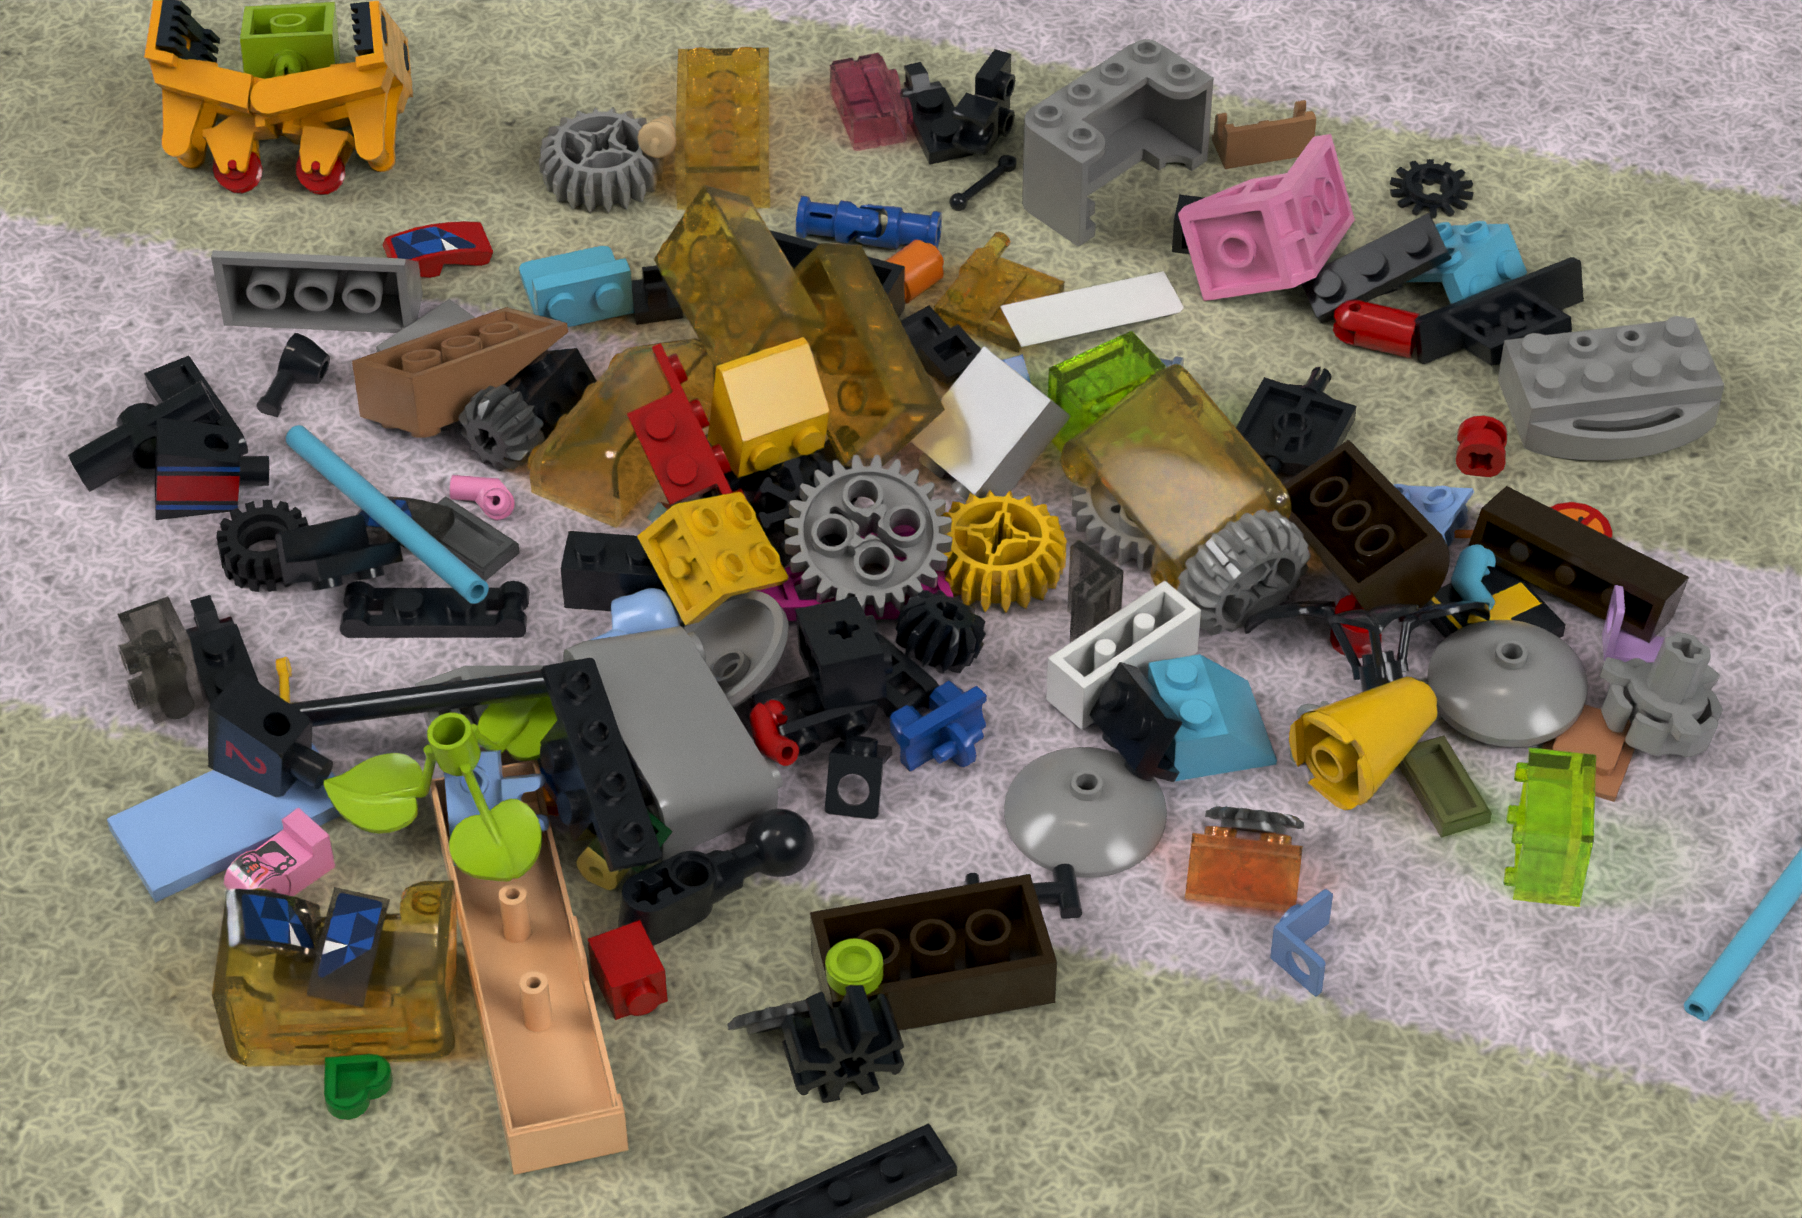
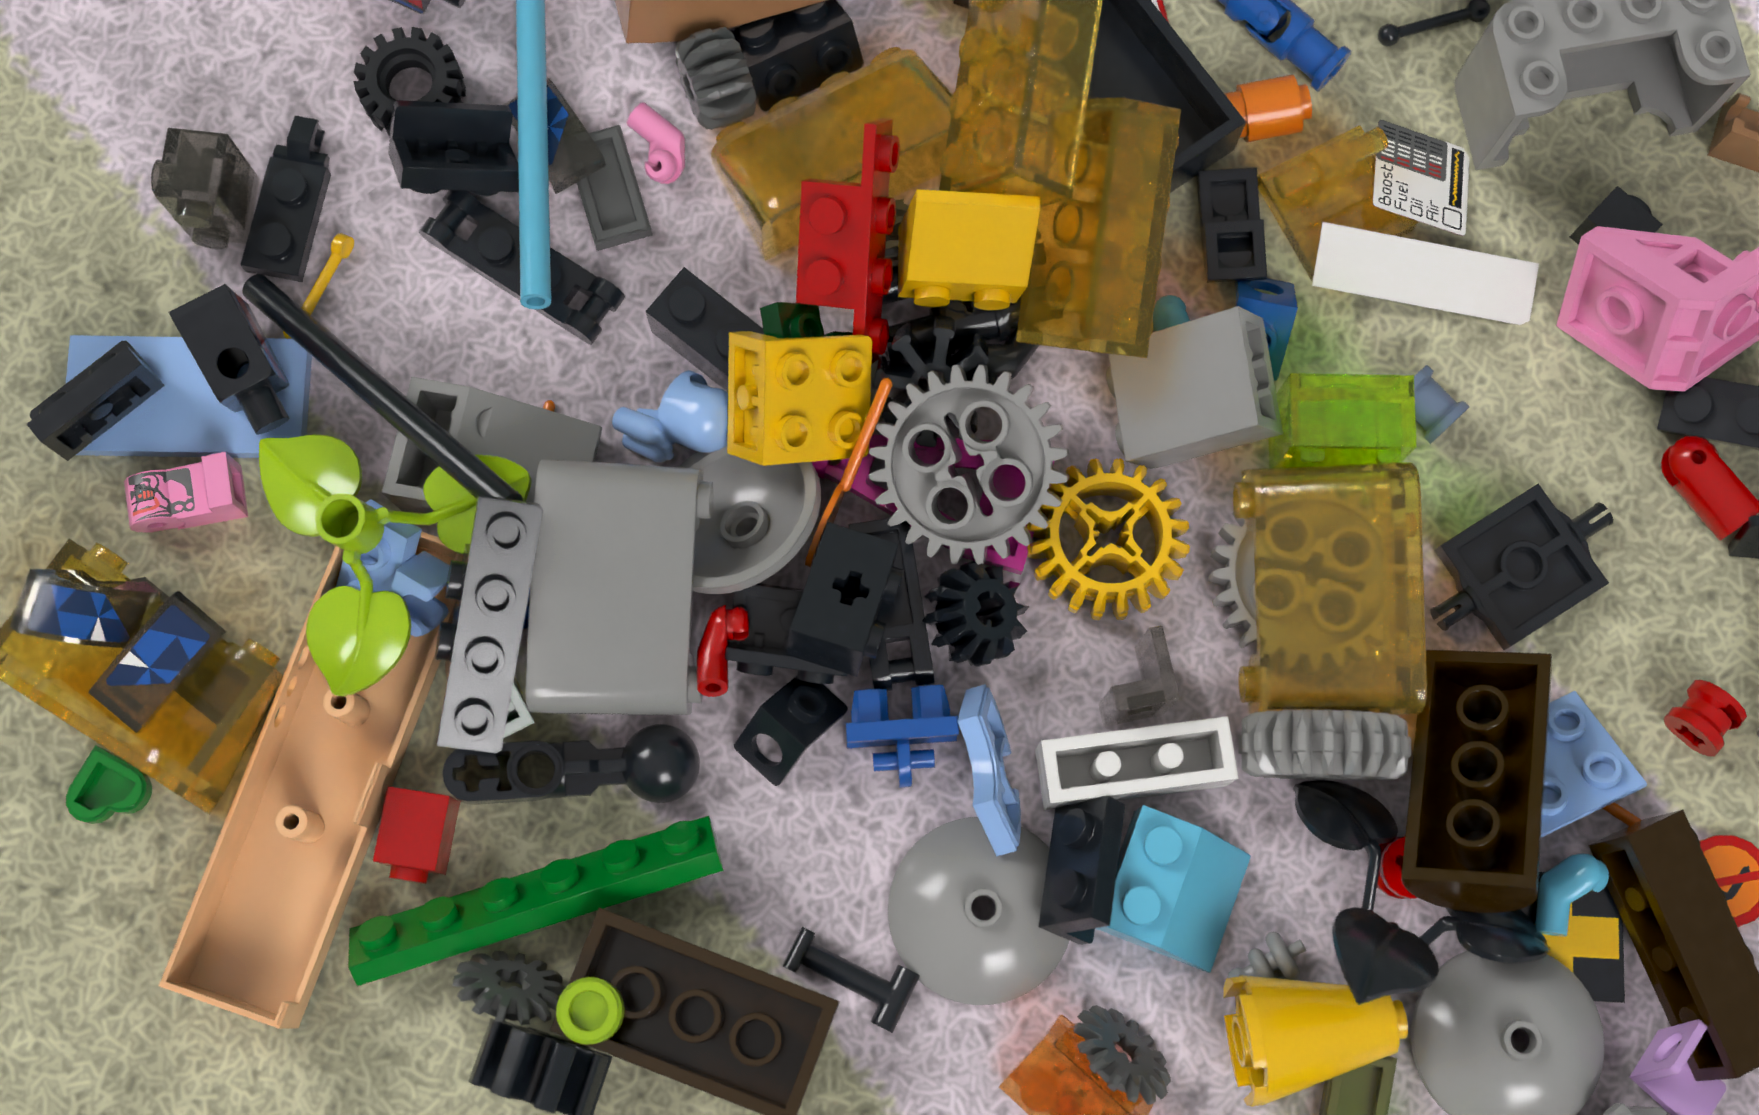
camera: 30 degrees right, 30 degrees up
(168, 827) = (94, 401): none -> black bracket
(738, 973) = (533, 900): none -> green plate
(792, 641) = (852, 467): none -> orange piece
(1028, 714) = (987, 744): none -> light blue tile
(1048, 260) = (1422, 179): none -> sticker

